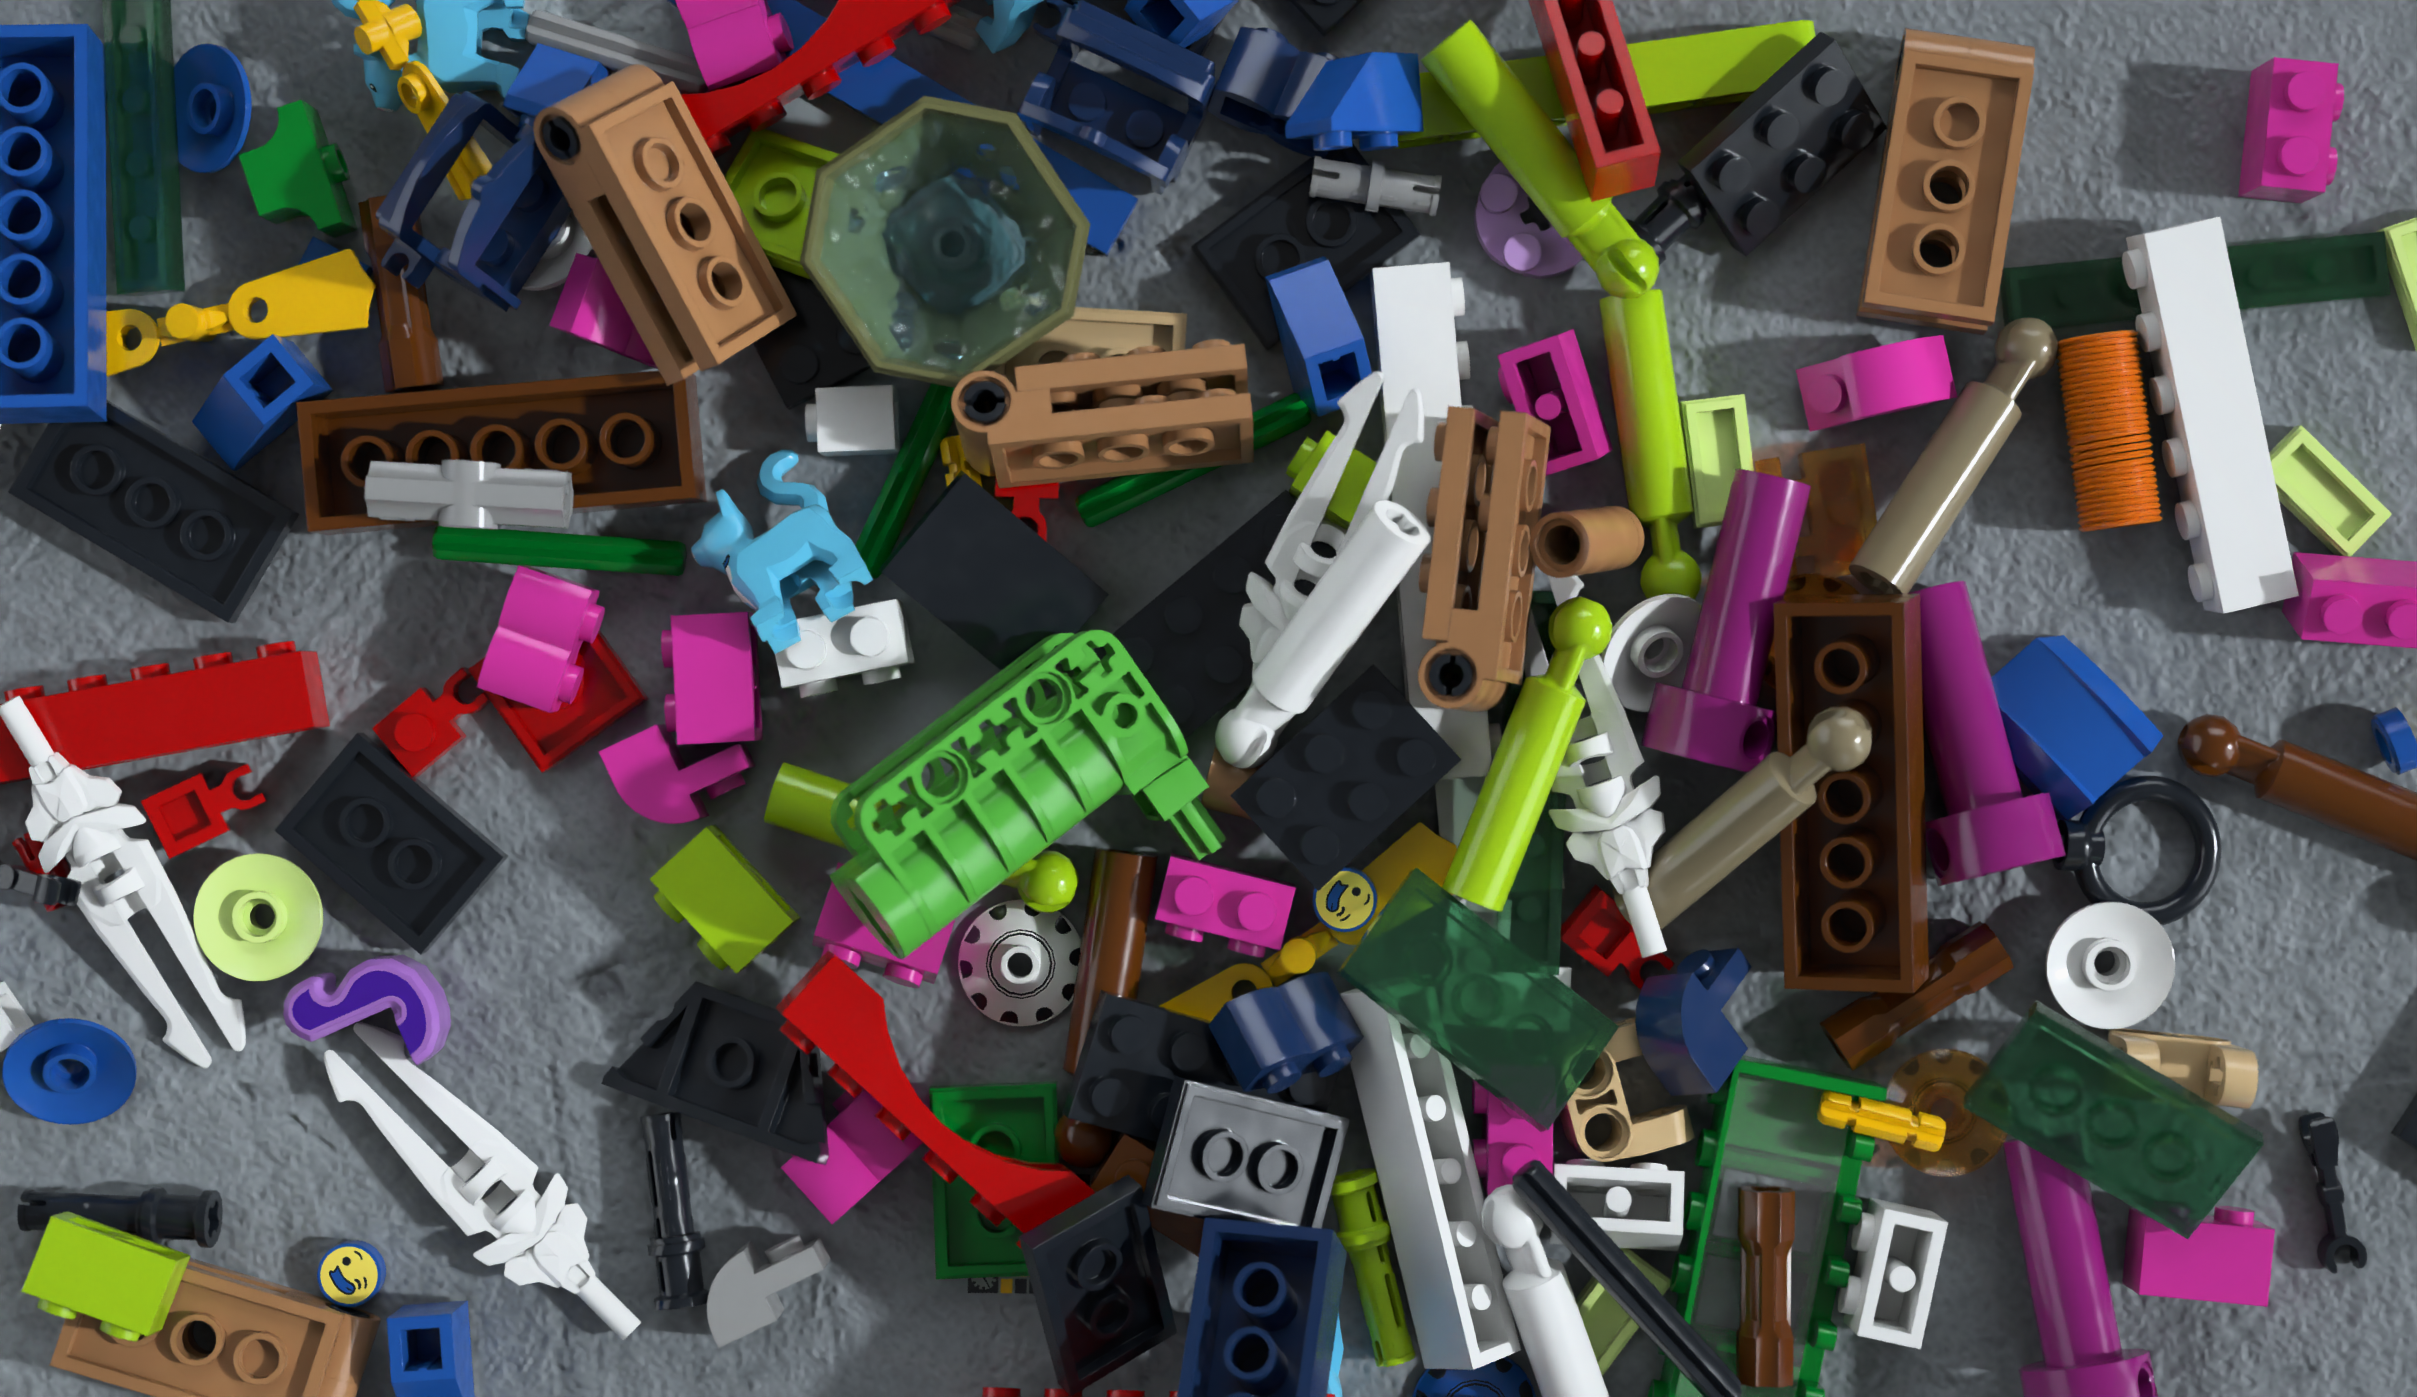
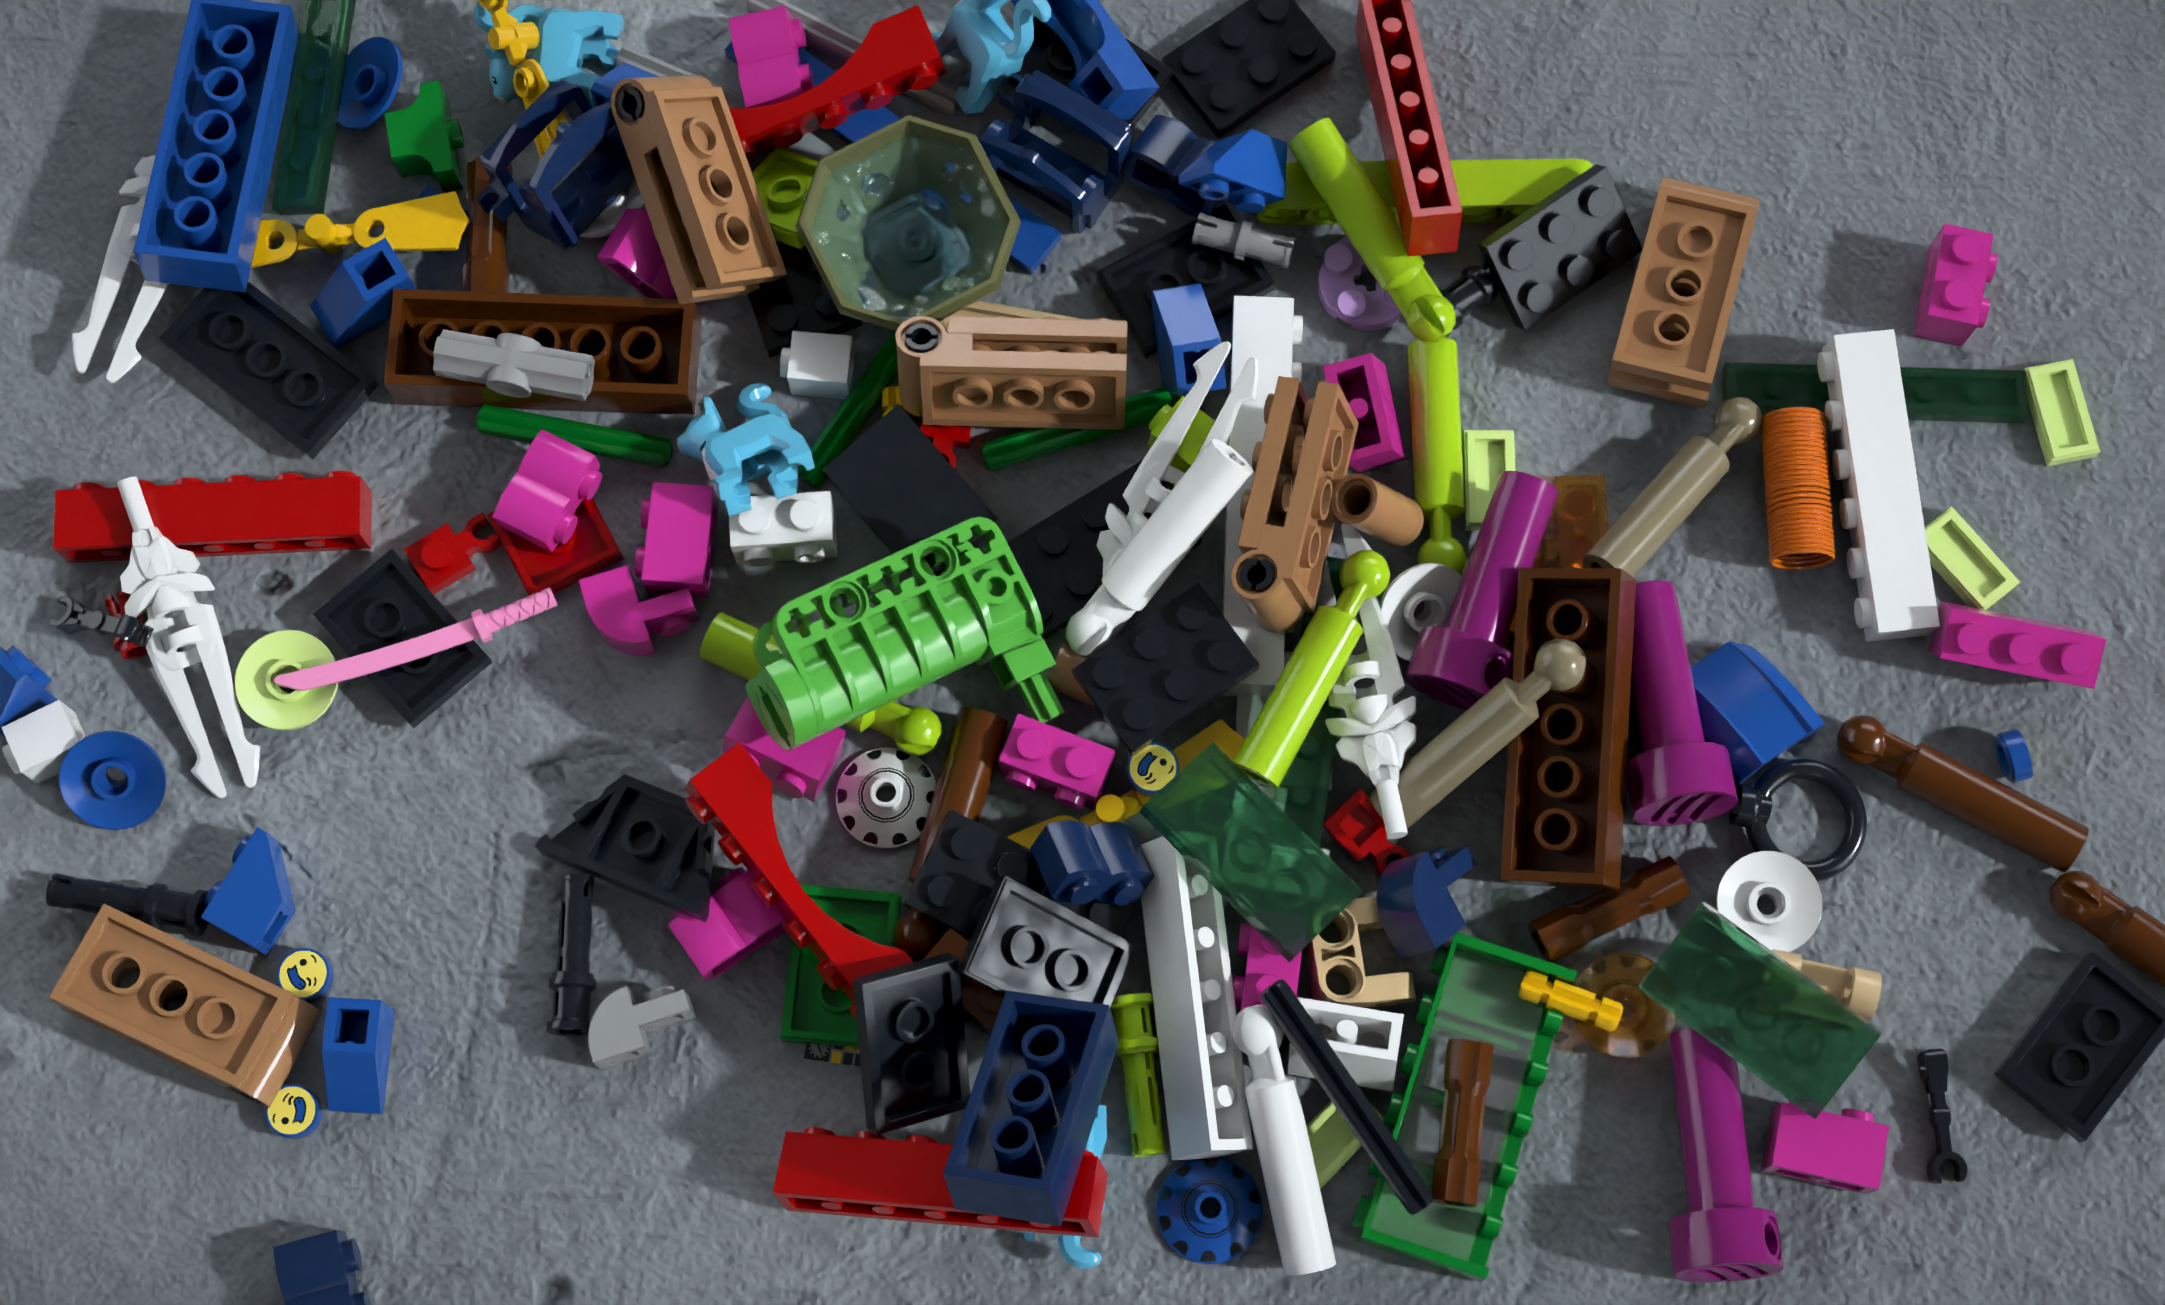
camera: 10 degrees right, 15 degrees down
(105, 1276) = (109, 924): lime brick -> none
(193, 812) = (251, 596): red plate -> none
(273, 1191) = (255, 895): none -> blue slope
(383, 982) = (361, 749): medium lavender animal -> none
(485, 821) = (478, 626): none -> bright pink sword
(535, 1234) = (457, 960): white sword -> none
(722, 900) = (658, 712): lime brick -> none
(1876, 382) = (1621, 425): dark pink brick -> none
(1893, 1272) = (1570, 1126): white brick -> none

